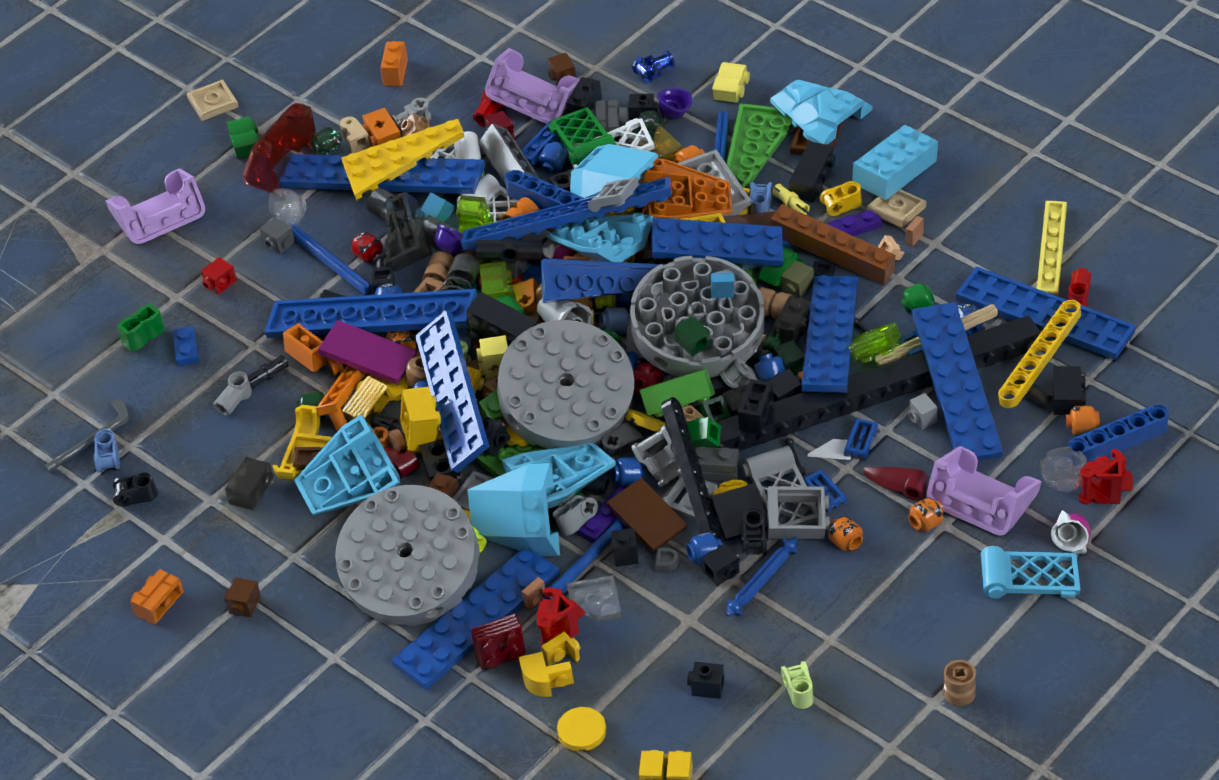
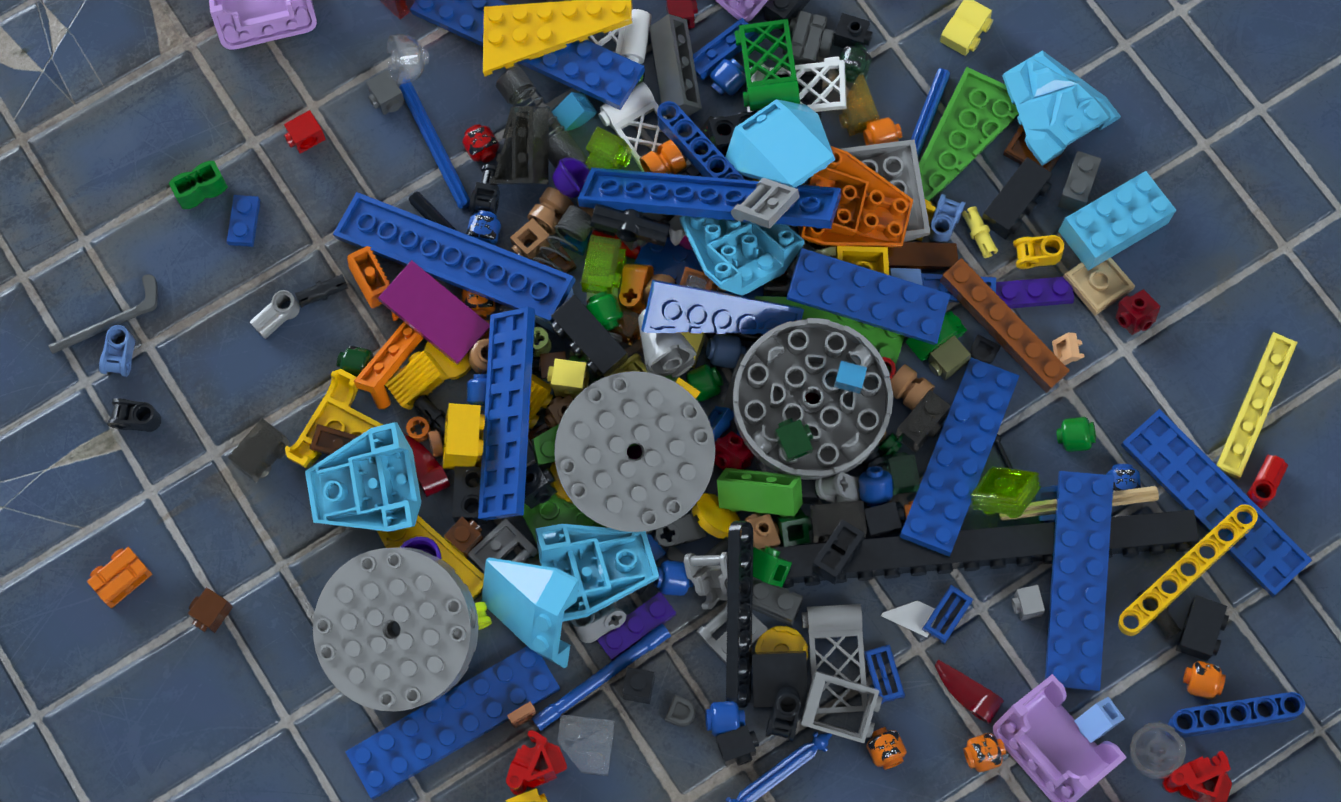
camera: 15 degrees right, 25 degrees up
(498, 641) = (461, 777): dark red brick -> none
(648, 514) = (675, 648): reddish brown tile -> none
(674, 102) = (891, 39): dark purple helmet -> none
(789, 442) = (867, 591): black hinge -> none
(855, 145) = (1079, 181): none -> dark grey brick
(914, 231) = (1106, 329): nougat tile -> none
(935, 212) = (1137, 312): none -> dark red brick
(1009, 466) = (1099, 720): none -> light blue brick

